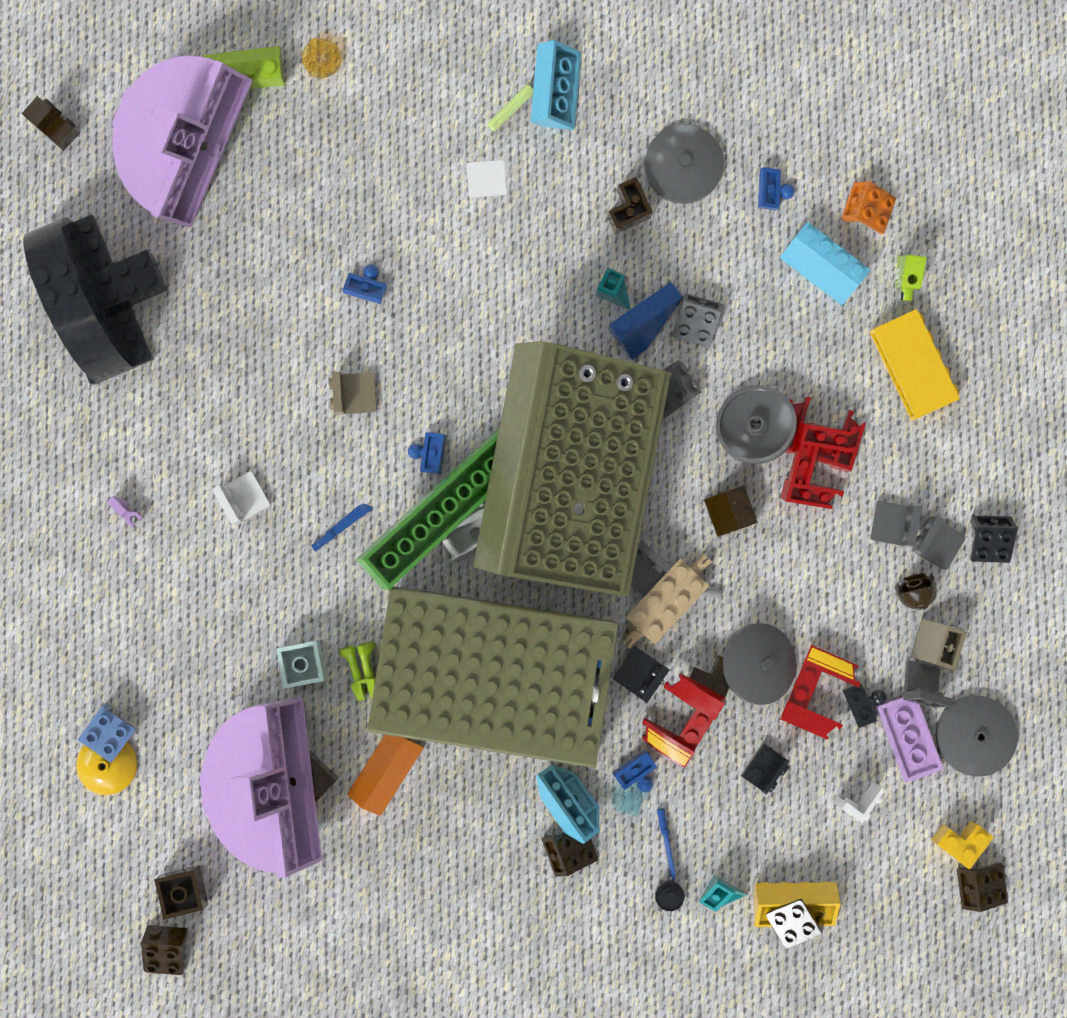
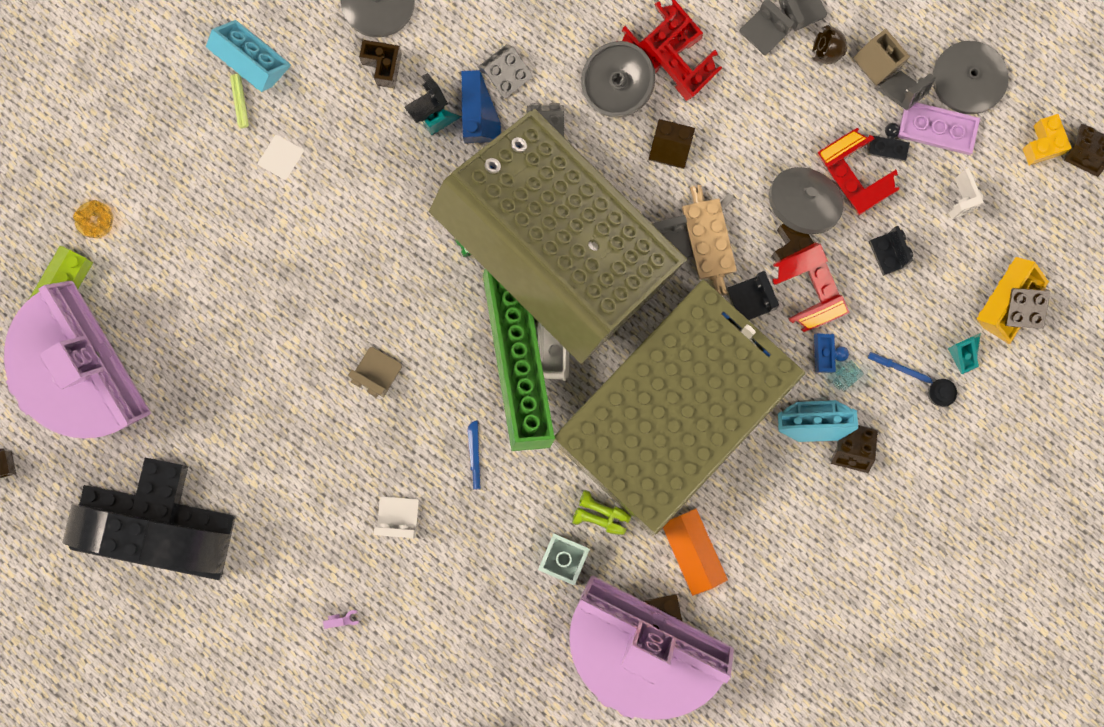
camera: 50 degrees left, 5 degrees down
(366, 286) = (297, 306): blue plate -> none
(431, 453) = (466, 343): blue plate -> none
(619, 272) = (429, 103): none -> black bracket

